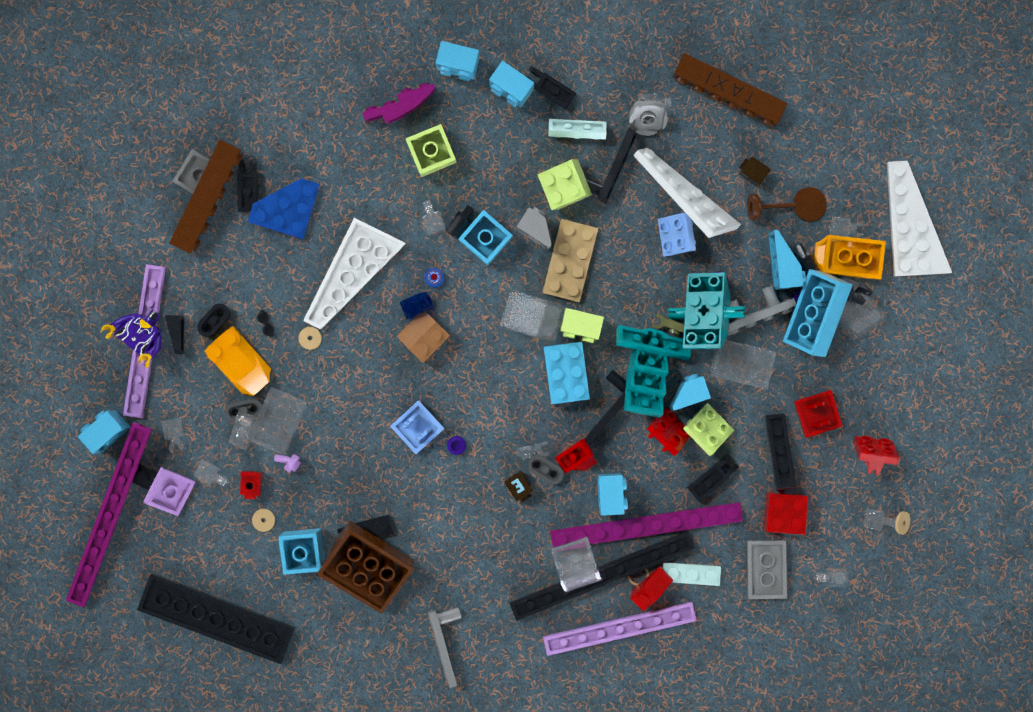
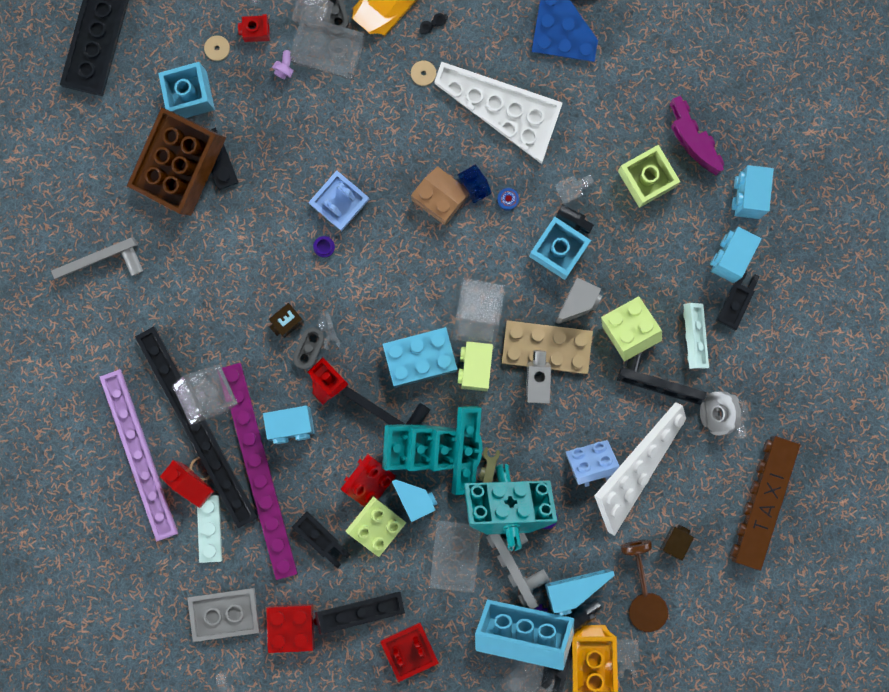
camera: 80 degrees right, 5 degrees down
(599, 272) = (538, 386): none -> light grey torso

